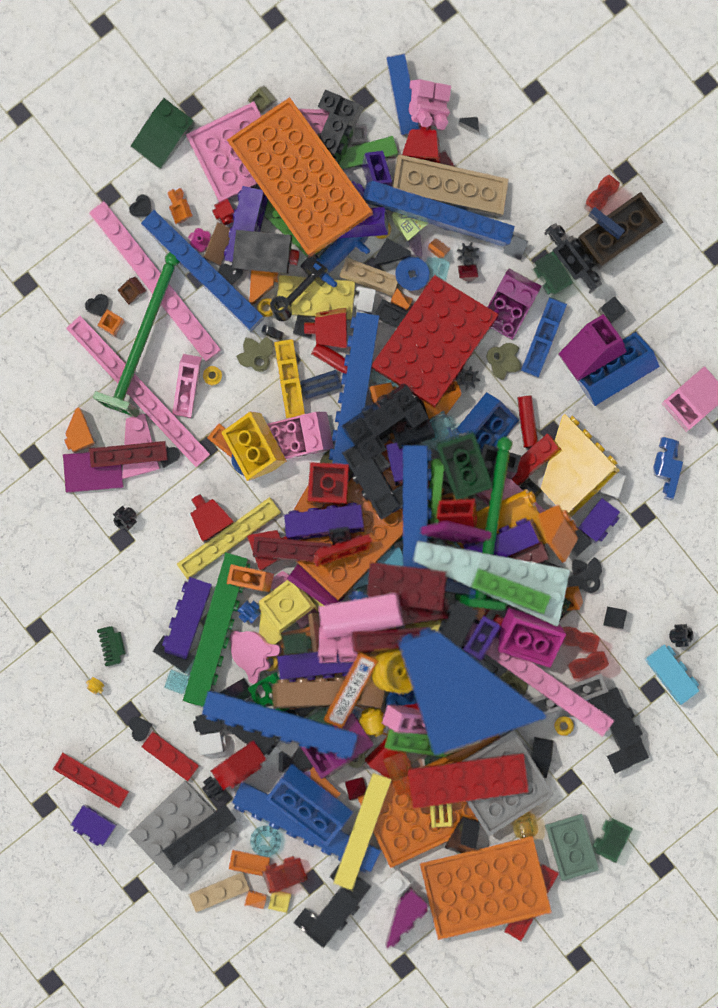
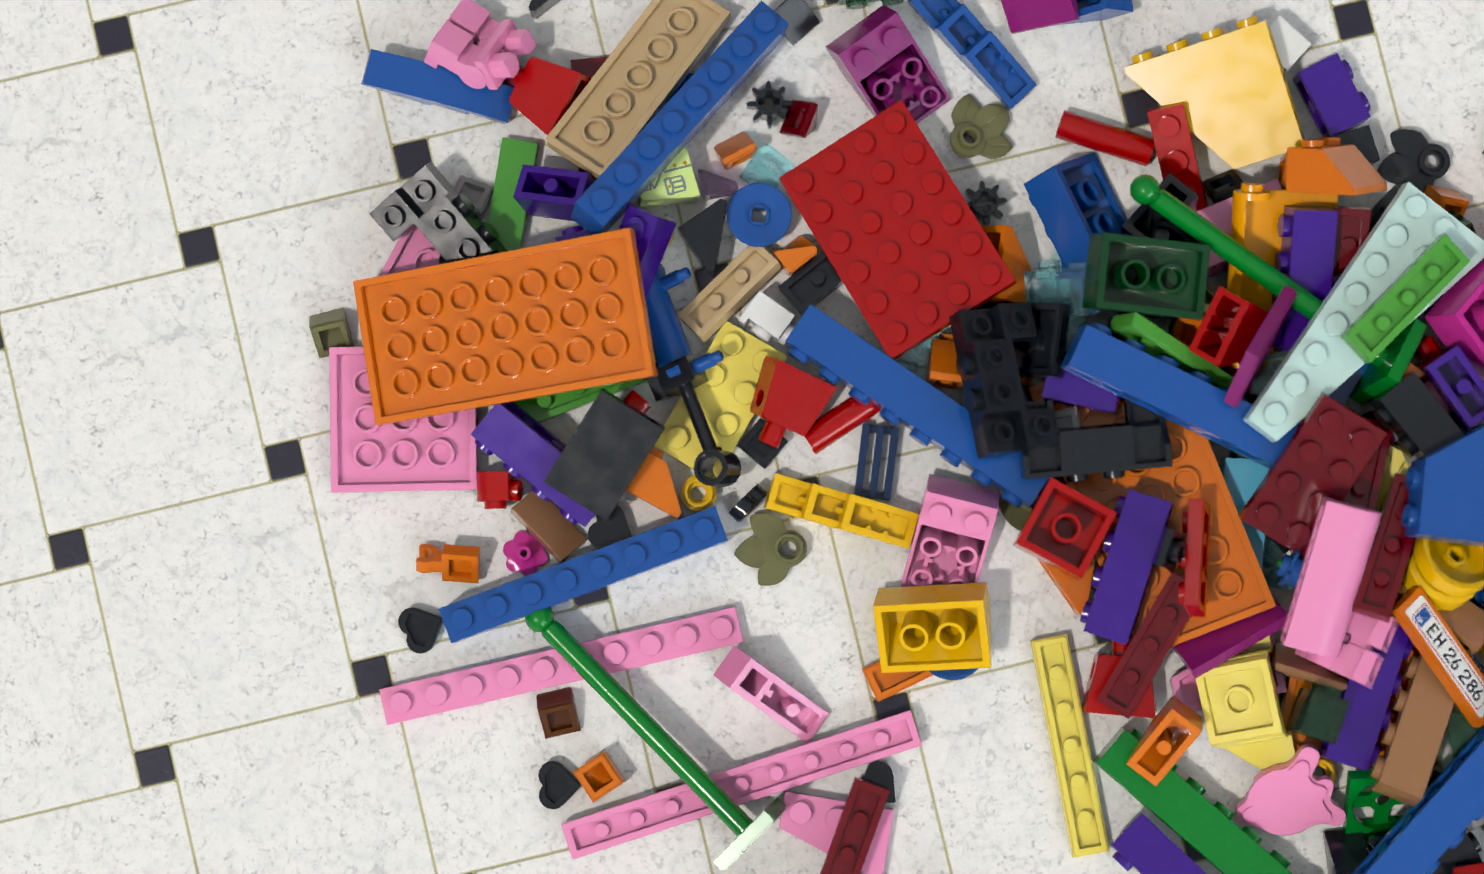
camera: 60 degrees left, 0 degrees up
(162, 133) = (309, 531): dark green slope -> none
(209, 518) = (1021, 763): red torso -> none
(216, 380) = (782, 633): yellow plate -> none
(249, 611) = (1216, 769): blue gear -> none

